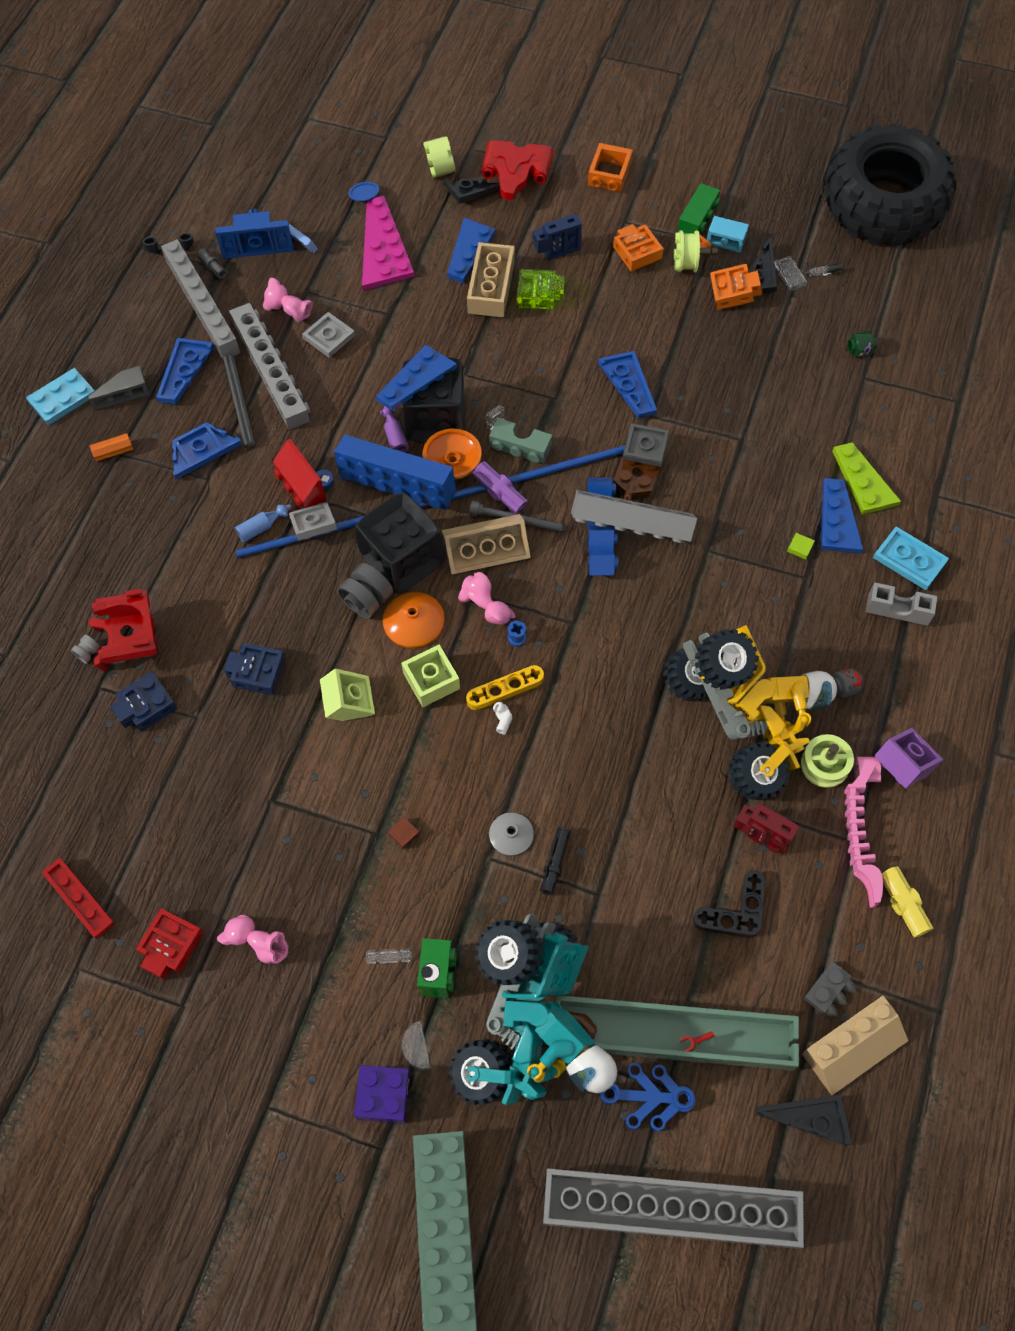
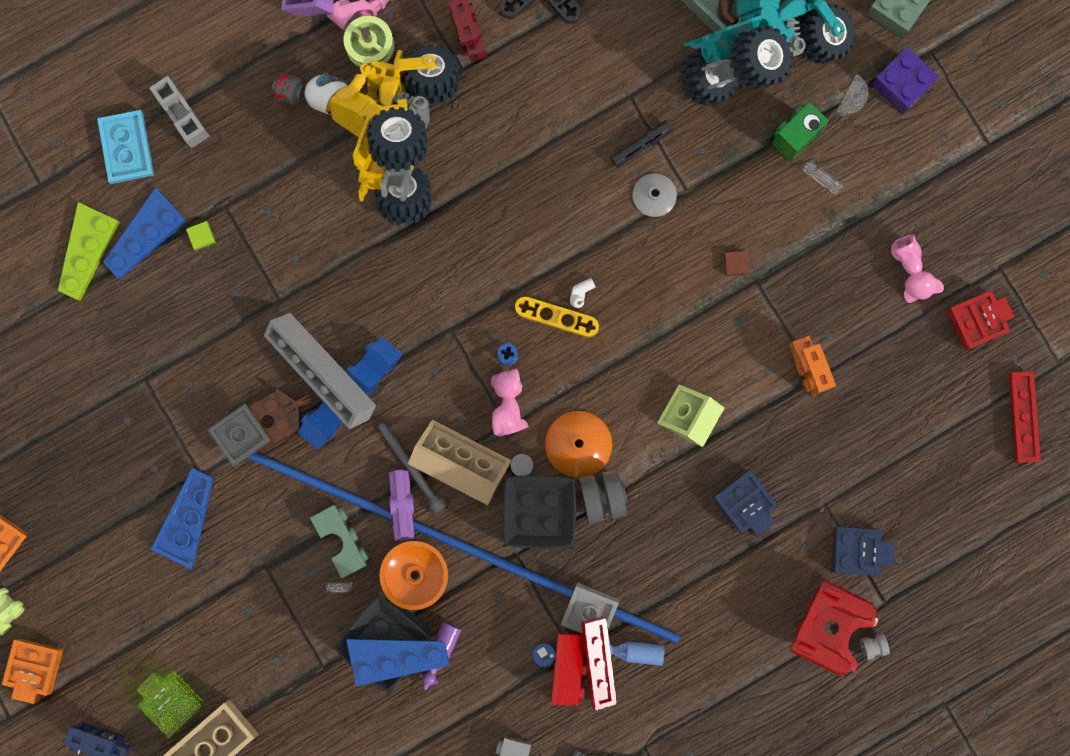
camera: 140 degrees left, 20 degrees up
(279, 794) = (812, 365): none -> orange piece
(280, 494) = (598, 662): none -> plate
(395, 472) = (482, 595): blue brick -> none
(430, 675) = (611, 372): yellowish green brick -> none
(441, 576) = (521, 465): none -> light grey tile

